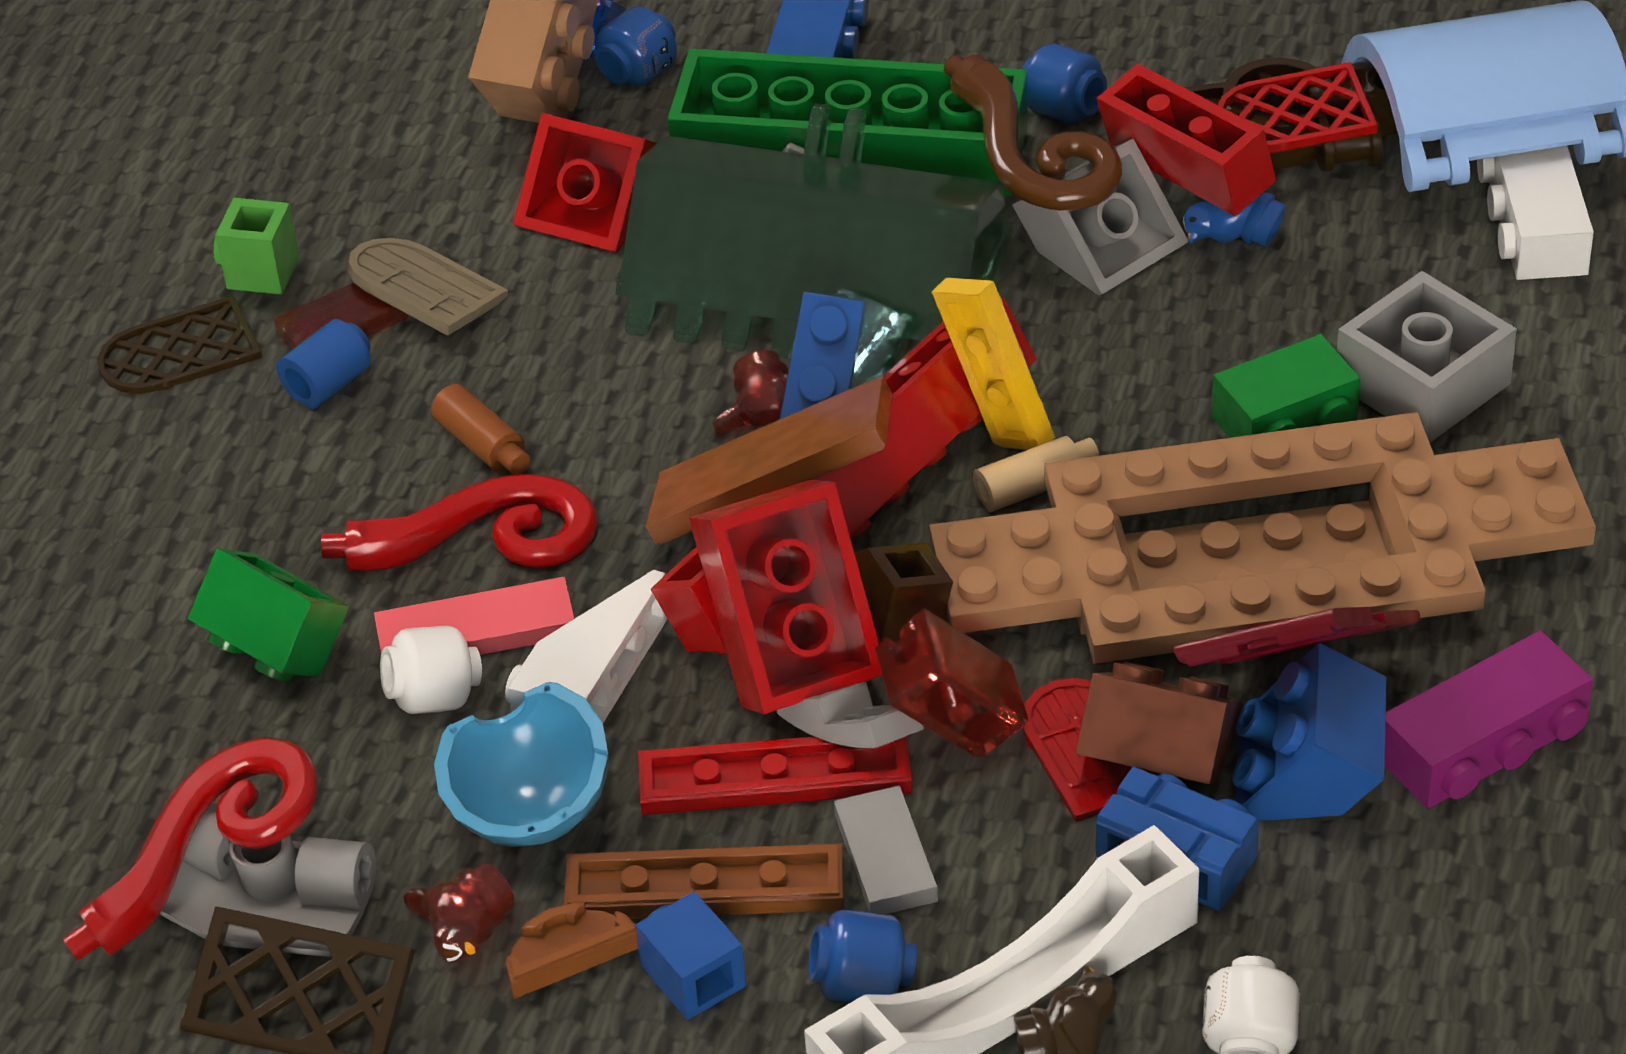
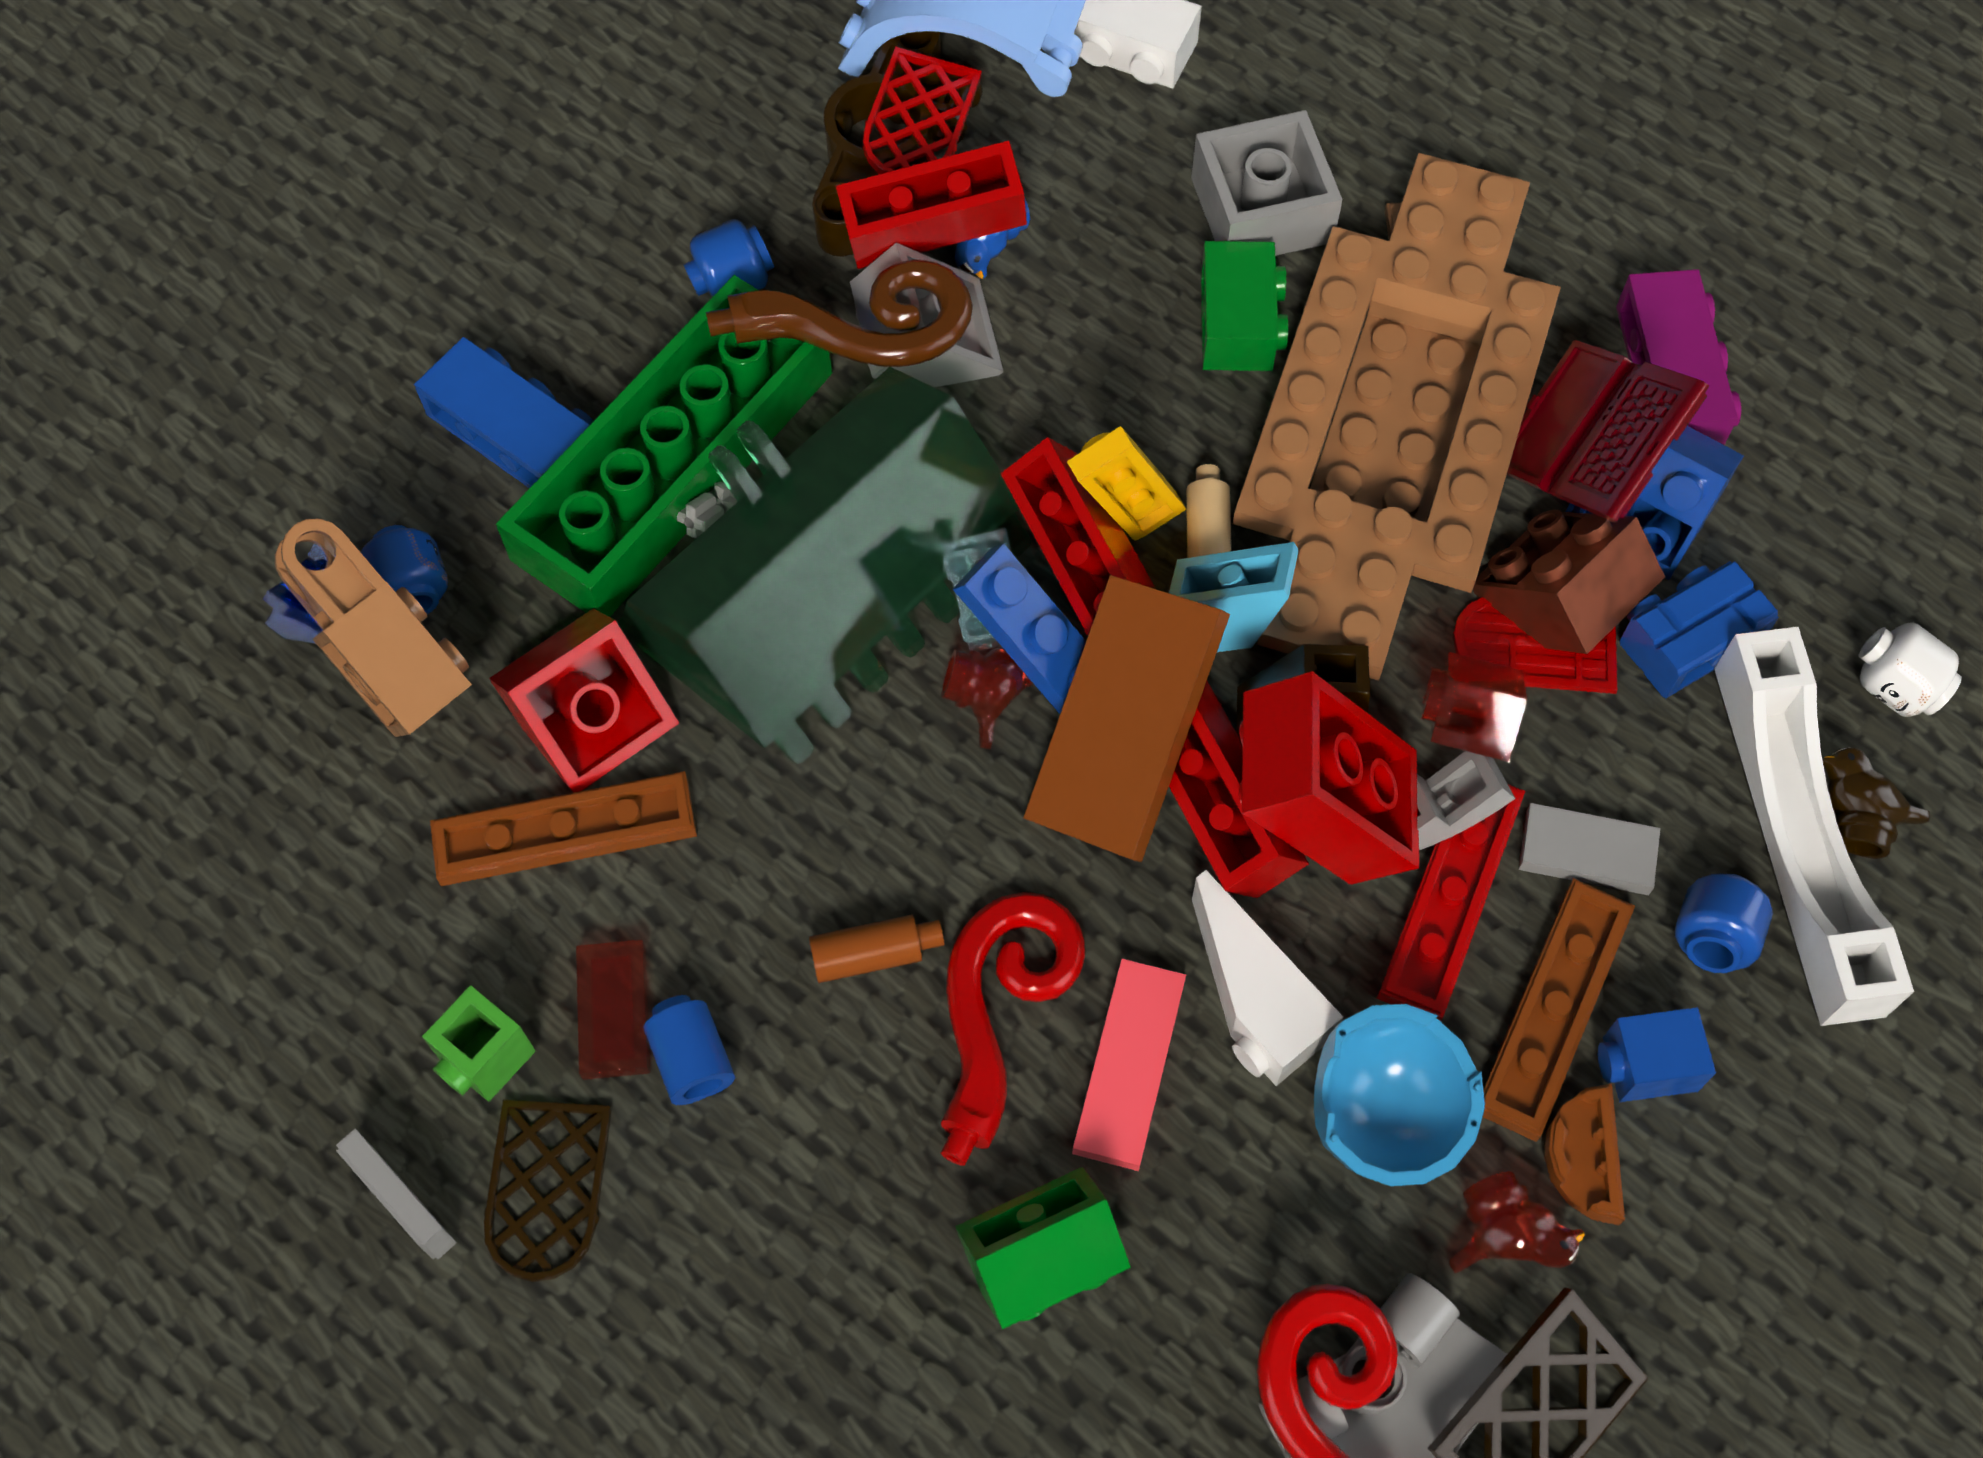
camera: 65 degrees left, 20 degrees up
(120, 265) = (395, 1195): none -> light grey tile
(422, 283) = (620, 913): dark tan window -> none
(429, 669) = (1188, 1128): white head -> none
(479, 230) = (562, 828): none -> dark orange tile
(944, 484) = (1241, 582): none -> medium azure slope

